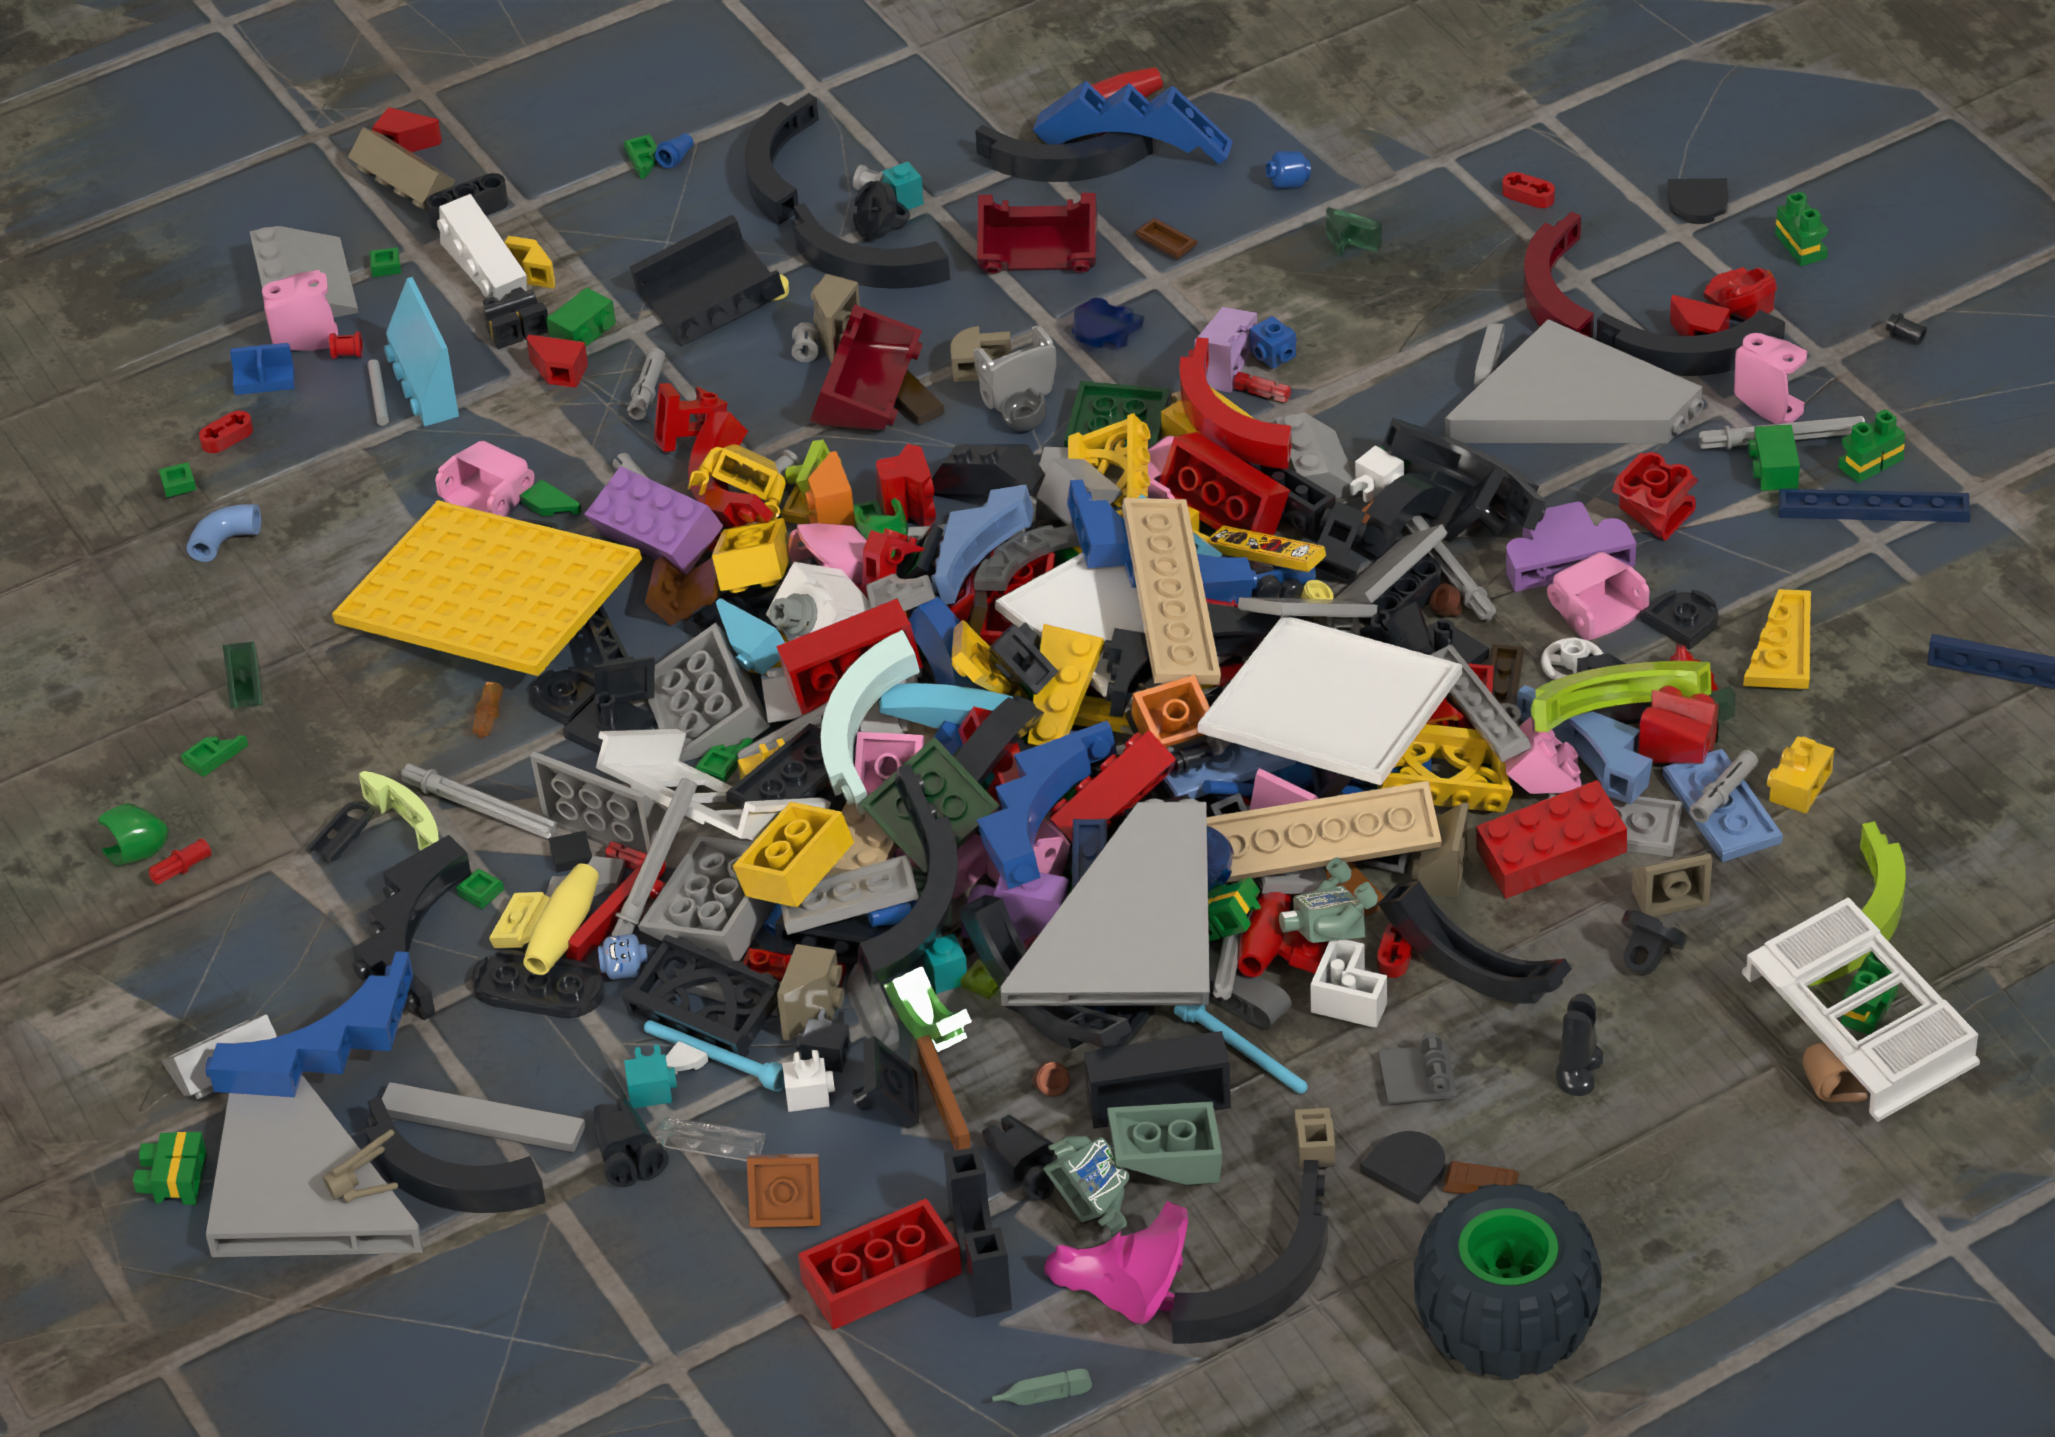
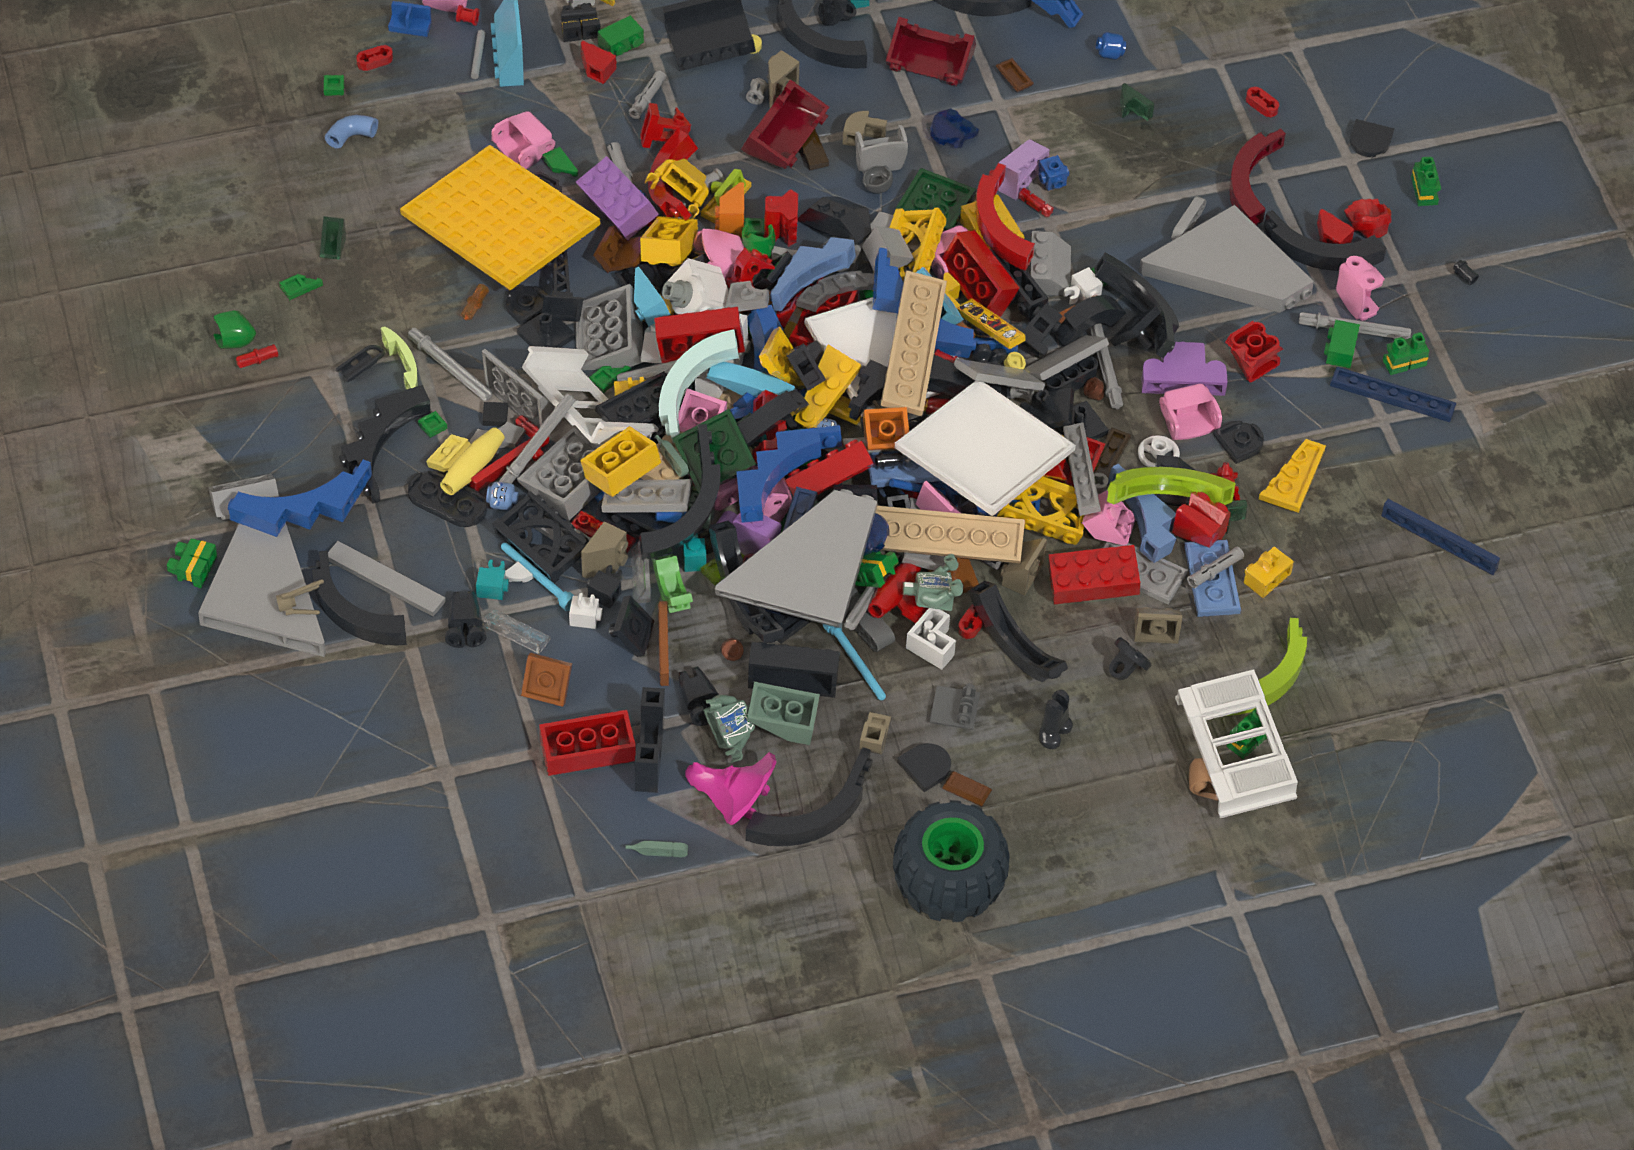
camera: 10 degrees right, 10 degrees up
(871, 834) = (673, 457): none -> sand green piece

